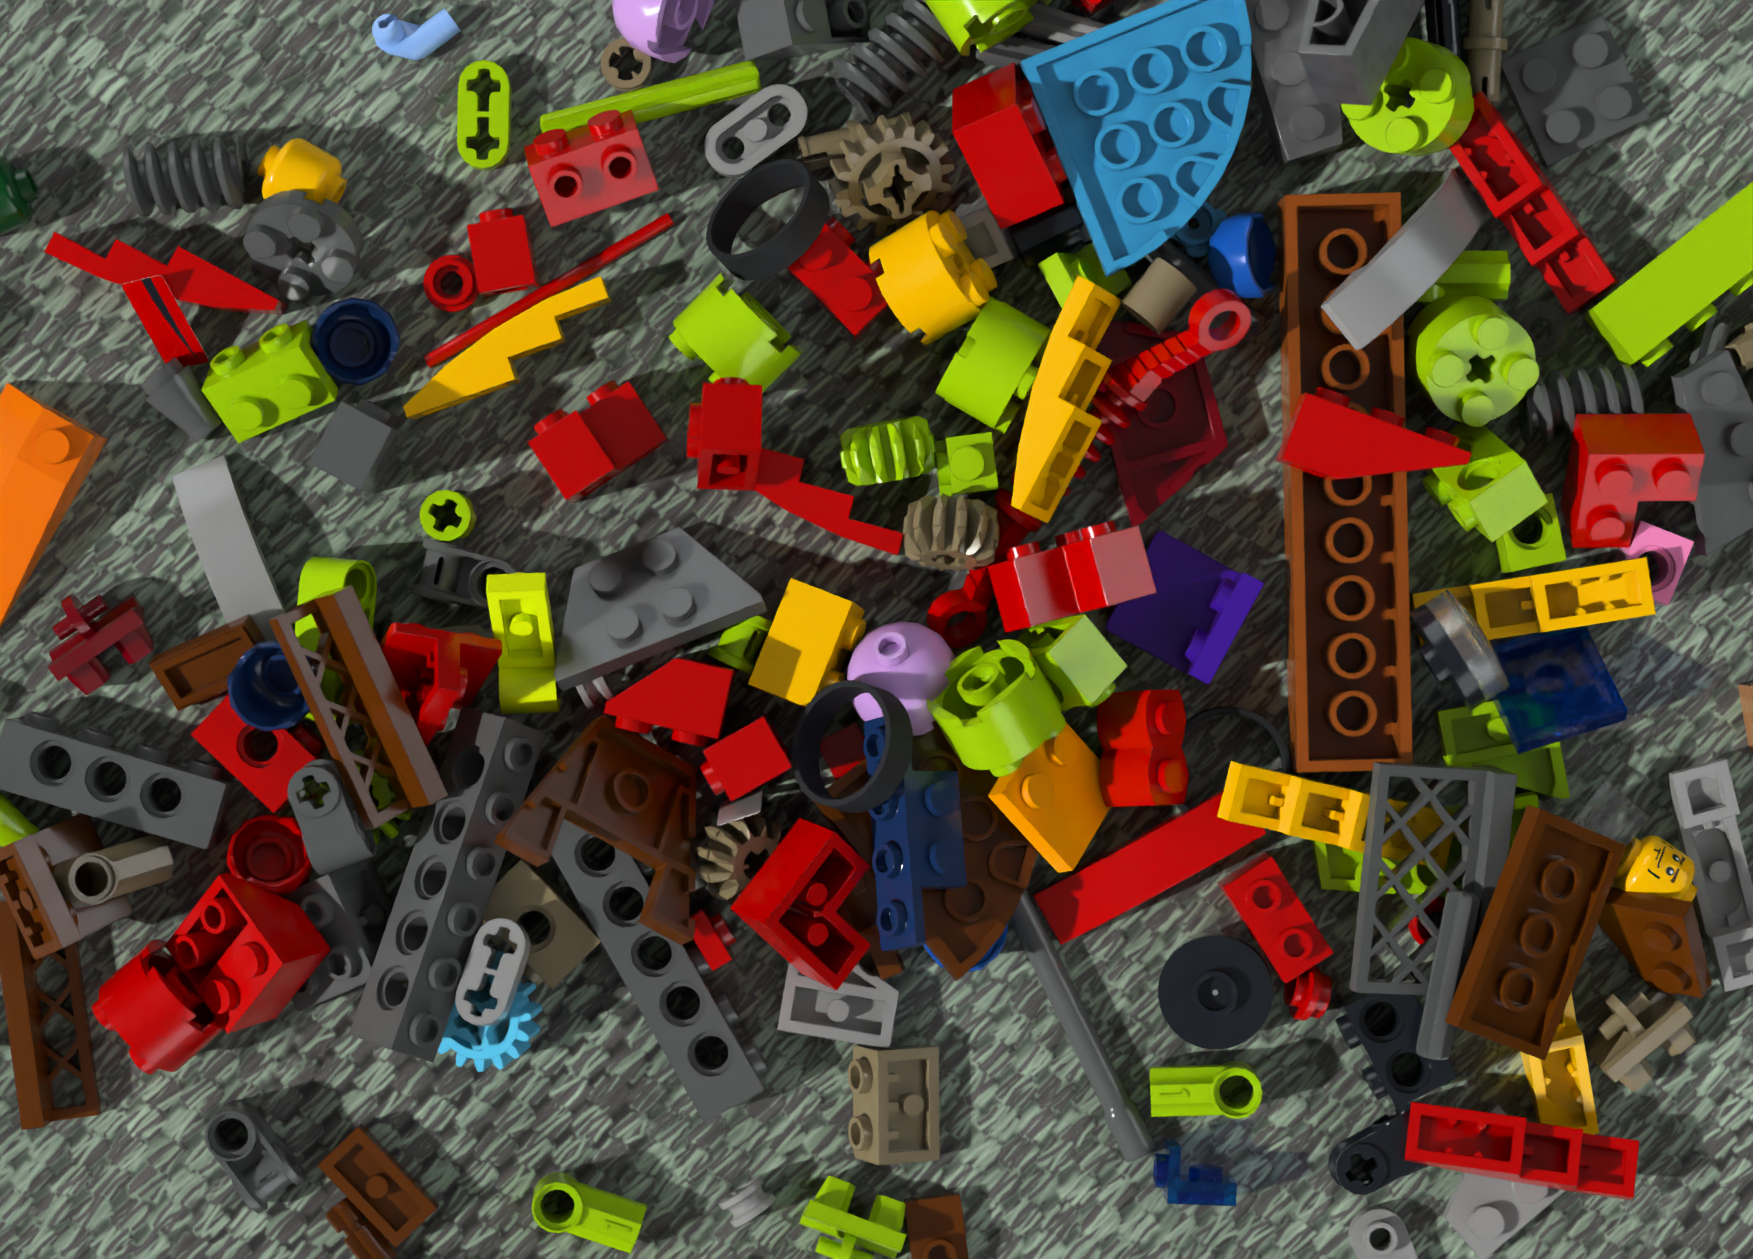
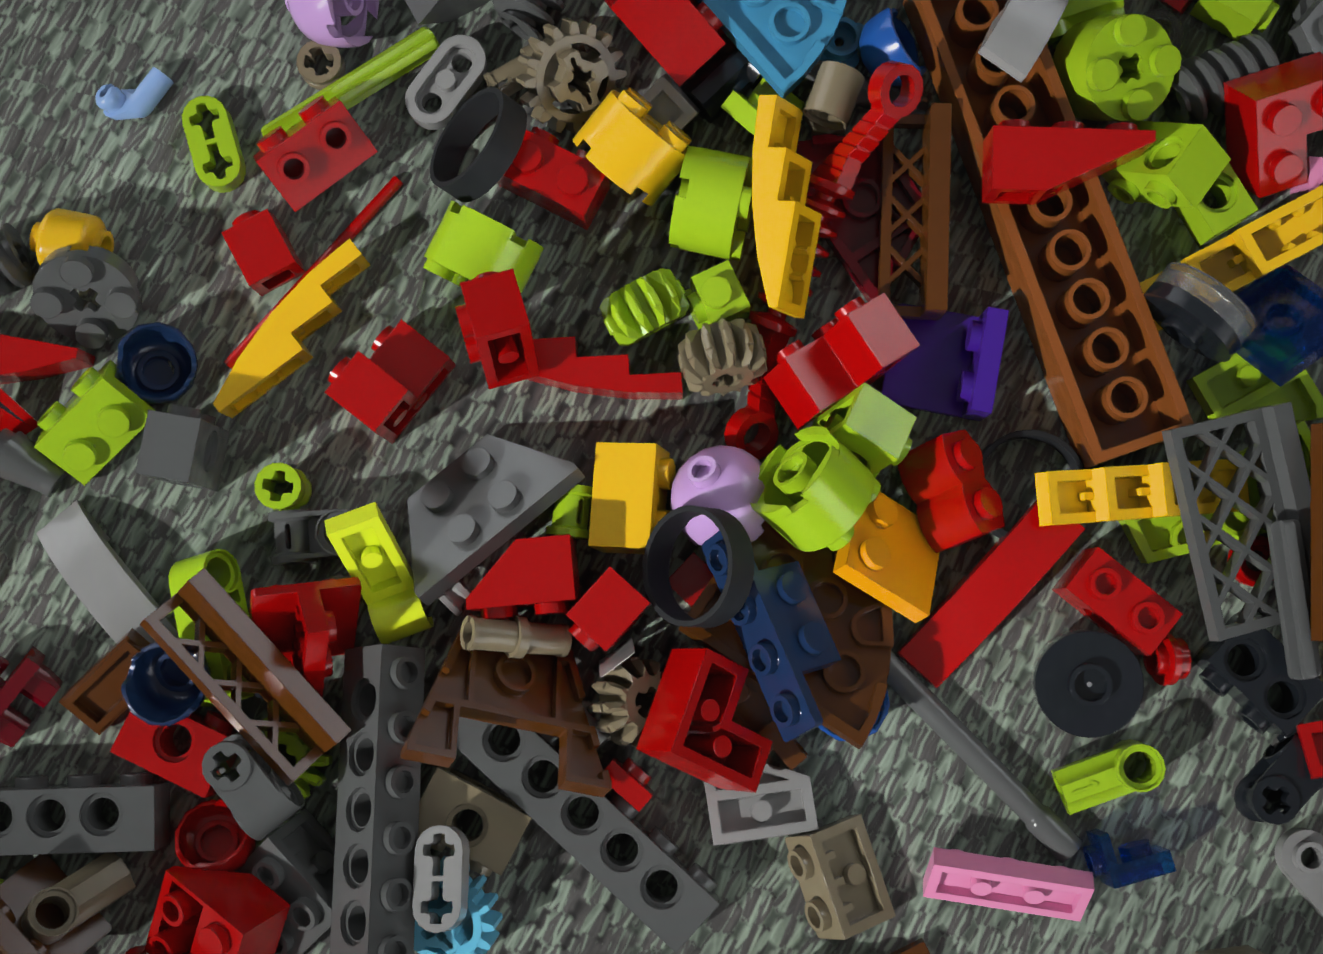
camera: 10 degrees left, 5 degrees down
(438, 271) = (213, 292): red plate -> none
(644, 754) = (515, 636): none -> dark tan pin
(1064, 1165) = (1008, 884): none -> bright pink plate
(1223, 456) = (934, 212): none -> reddish brown fence

